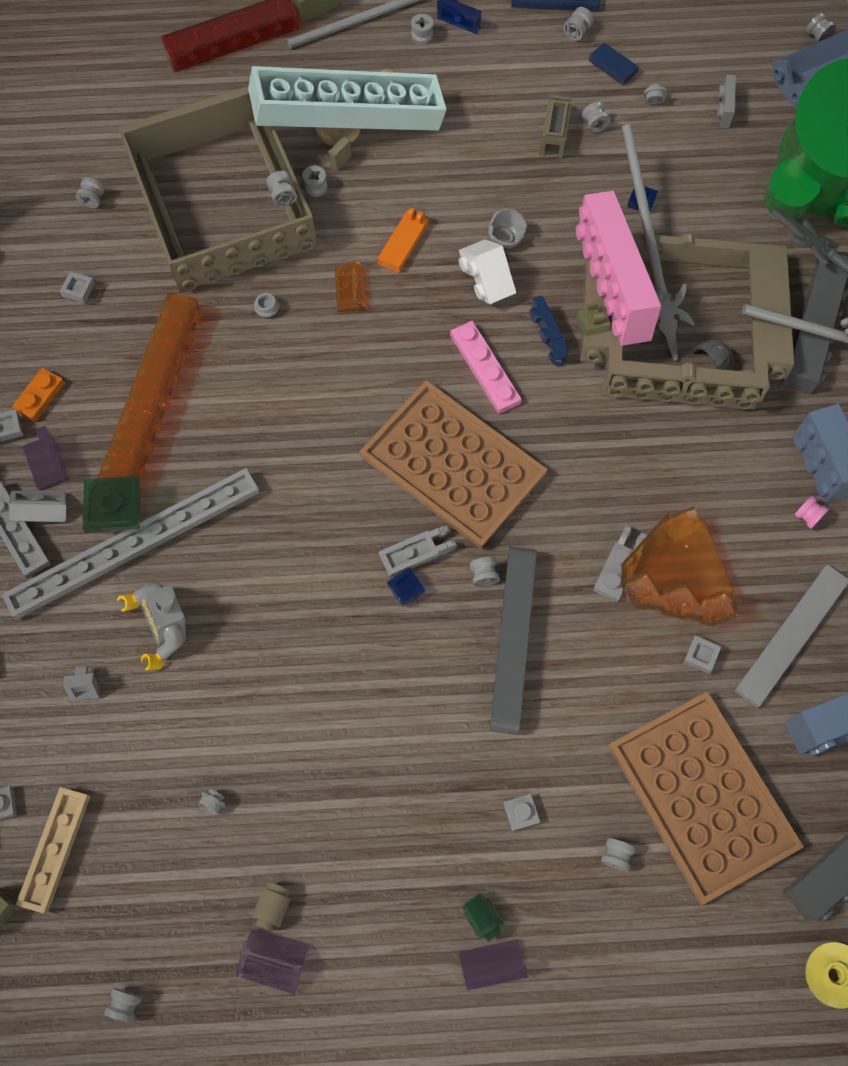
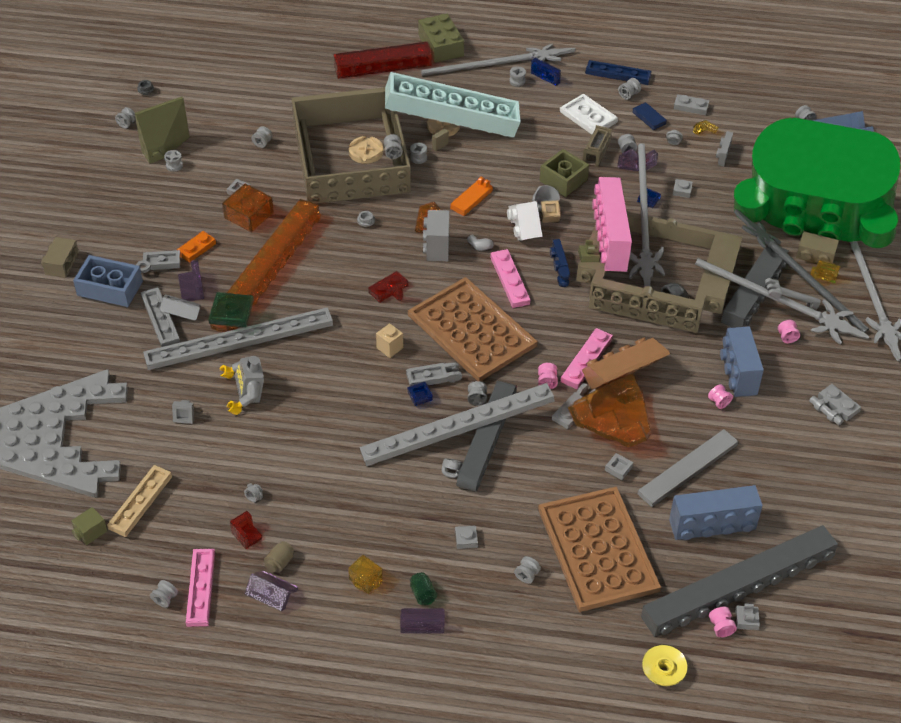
camera: 10 degrees right, 20 degrees down
(96, 318) = (248, 207): none -> clear orange brick
(172, 977) = (200, 587): none -> bright pink tile
(215, 870) = (244, 531): none -> clear red panel
(243, 199) = (365, 150): none -> tan tile
(323, 412) = (389, 286): none -> clear red plate
(345, 507) = (389, 340): none -> tan brick
(372, 320) = (436, 235): none -> light grey brick
(399, 912) = (365, 574): none -> clear yellow brick
(433, 318) = (480, 244): none -> light grey arm
(470, 635) = (456, 424): none -> light grey plate
(476, 701) = (452, 464): none -> light grey tile
(517, 247) = (550, 211): none -> tan slope
(522, 181) = (564, 172): none -> olive brick
(531, 74) = (588, 113): none -> white tile
(573, 523) = (548, 374): none -> bright pink wheel
(609, 143) = (630, 161): none -> clear purple slope
(617, 481) = (591, 350): none -> bright pink plate
(665, 35) = (691, 104): none -> light grey plate
(677, 487) = (624, 362): none -> medium nougat slope
(683, 175) = (682, 188): none -> light grey plate
(691, 67) = (703, 126): none -> clear yellow arm

